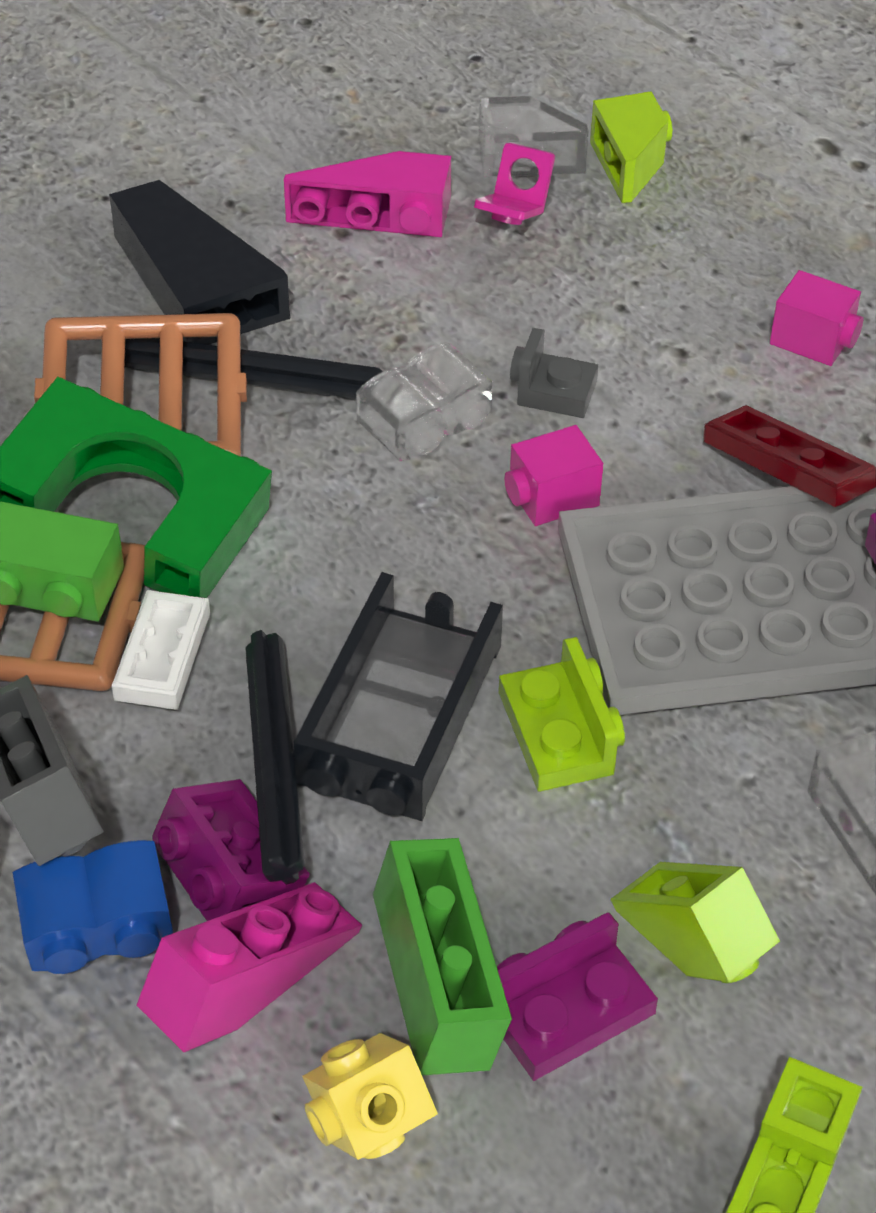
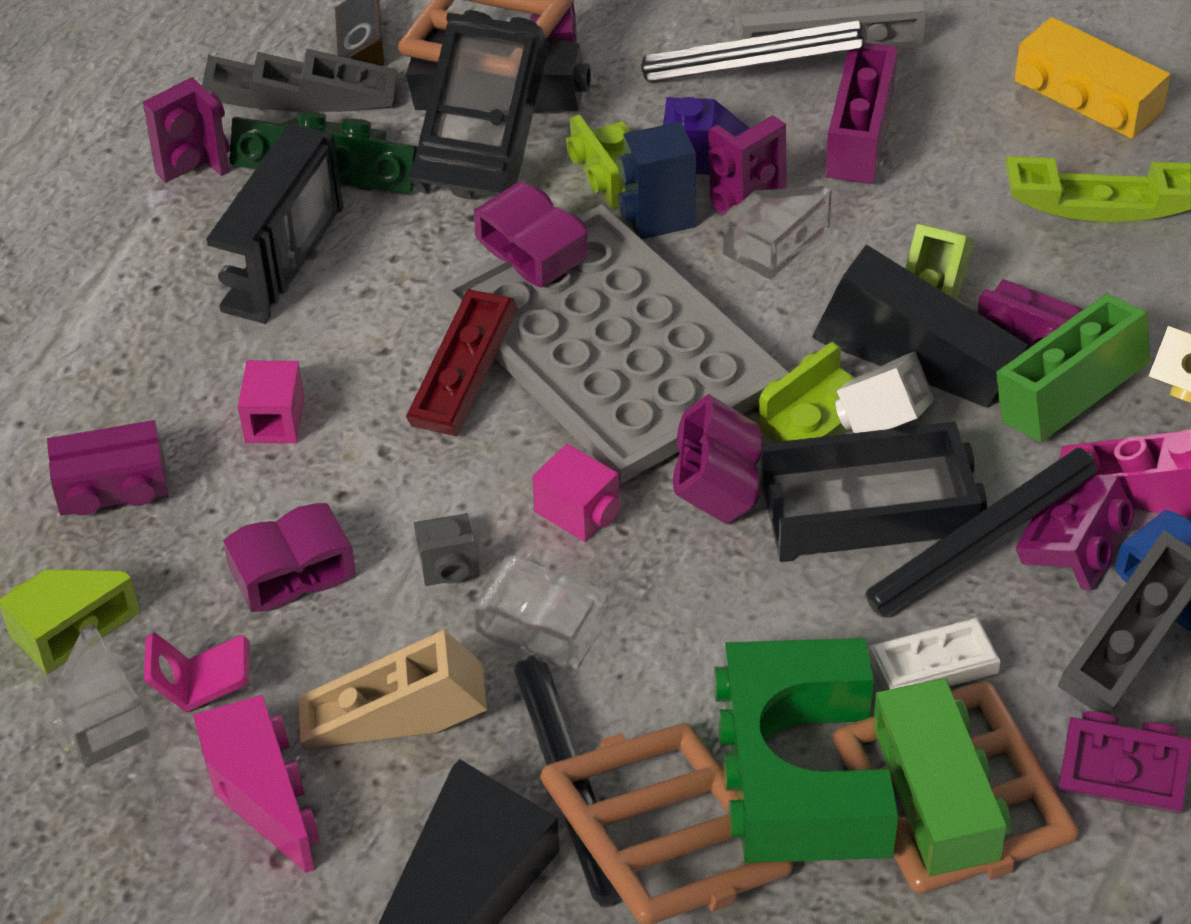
camera: 115 degrees left, 0 degrees up
(394, 291) = (396, 696): none -> tan slope
(511, 757) = (884, 396): none -> white slope
(530, 581) = (718, 459): none -> magenta brick
(597, 834) = (891, 312): none -> black slope
(608, 275) = (289, 557): none -> magenta brick
(786, 202) = (107, 468): none -> magenta brick

